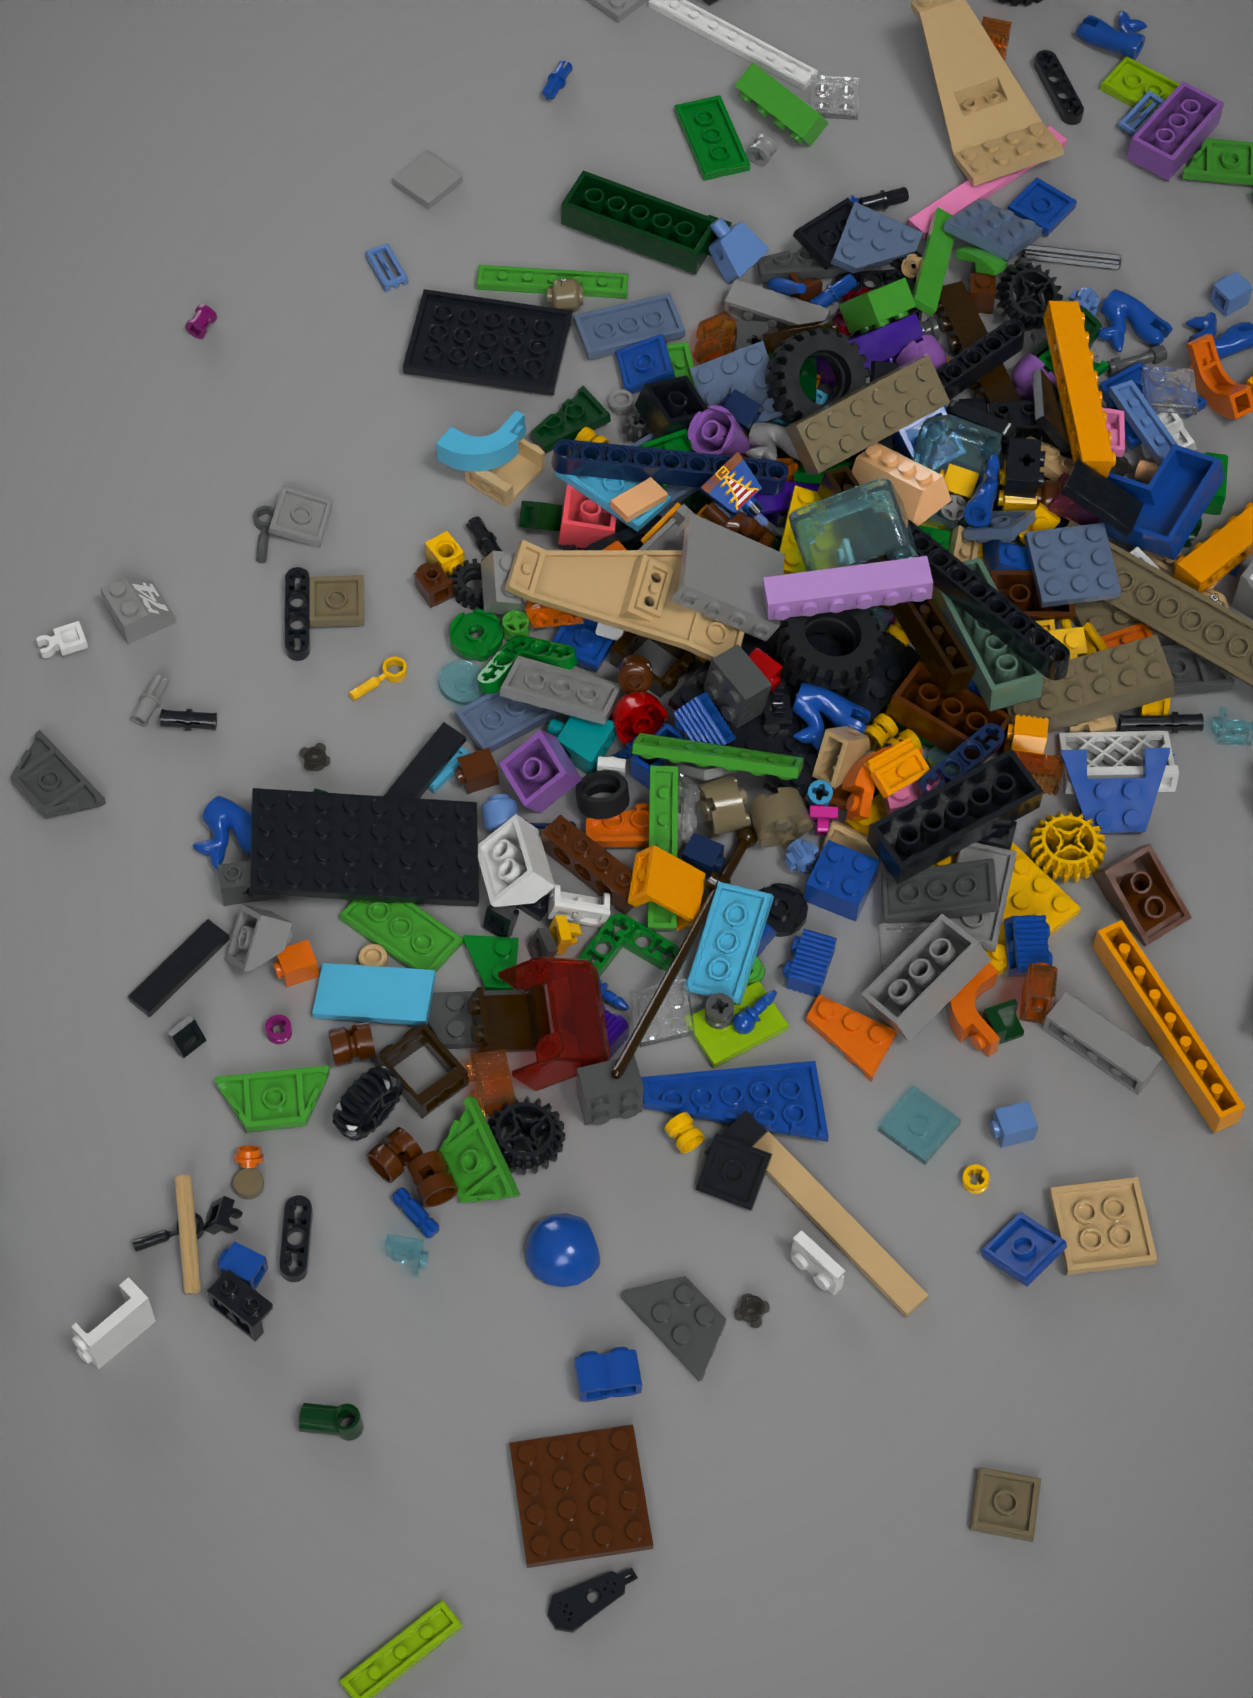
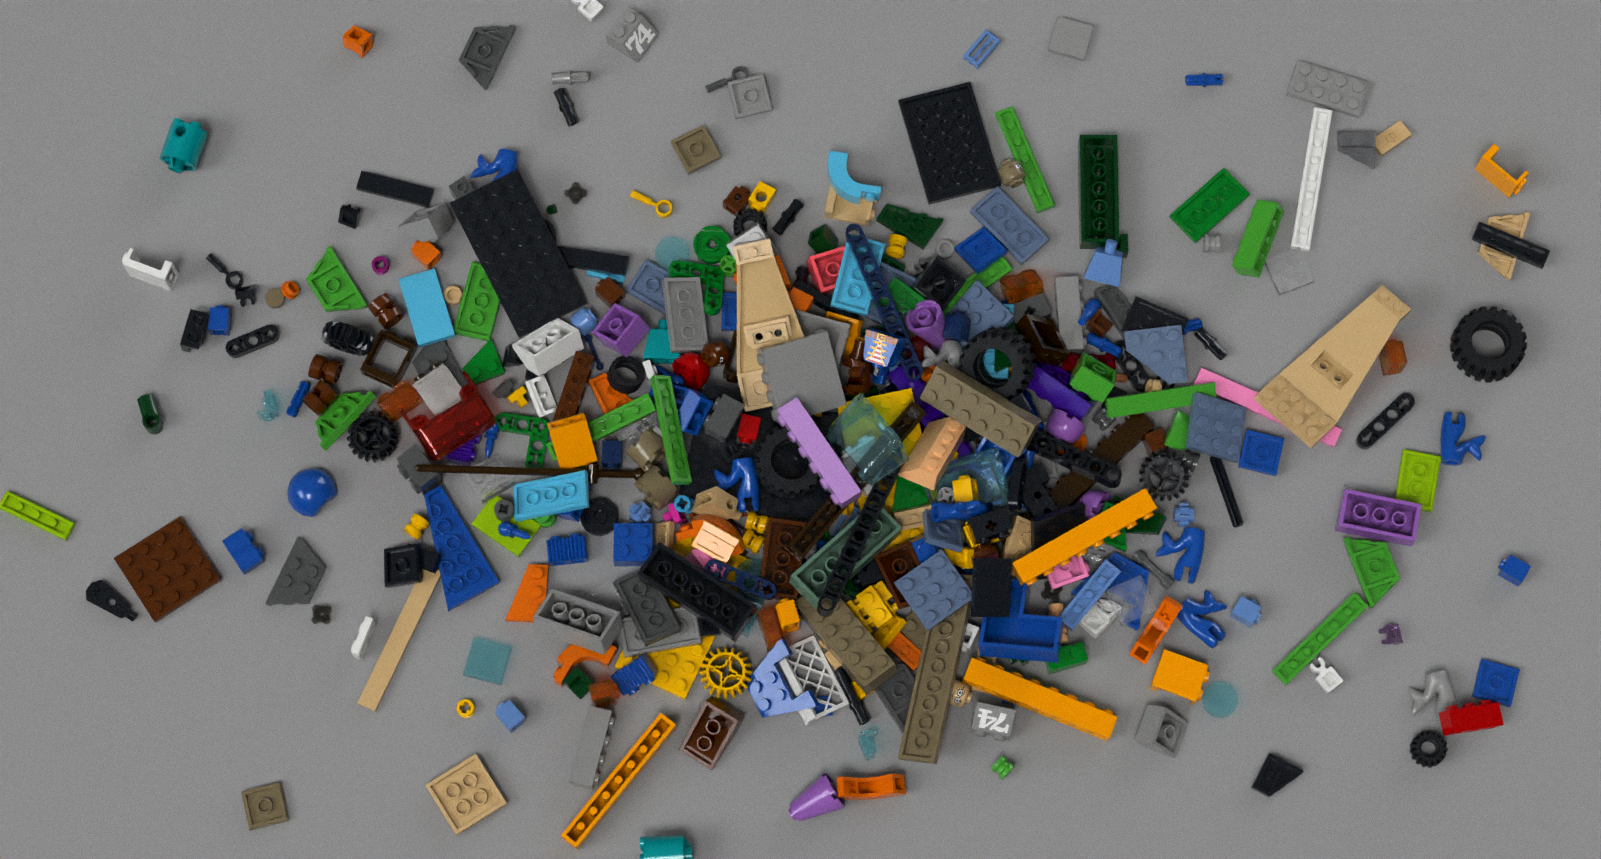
camera: 65 degrees right, 15 degrees up
(188, 1234) = (224, 281): tan axle -> none
(297, 613) = (674, 128): black beam -> none
(638, 500) = (849, 295): light nougat tile -> none
(1023, 1249) = (428, 753): blue tile -> none
(1131, 130) = (1402, 494): medium blue tile -> none

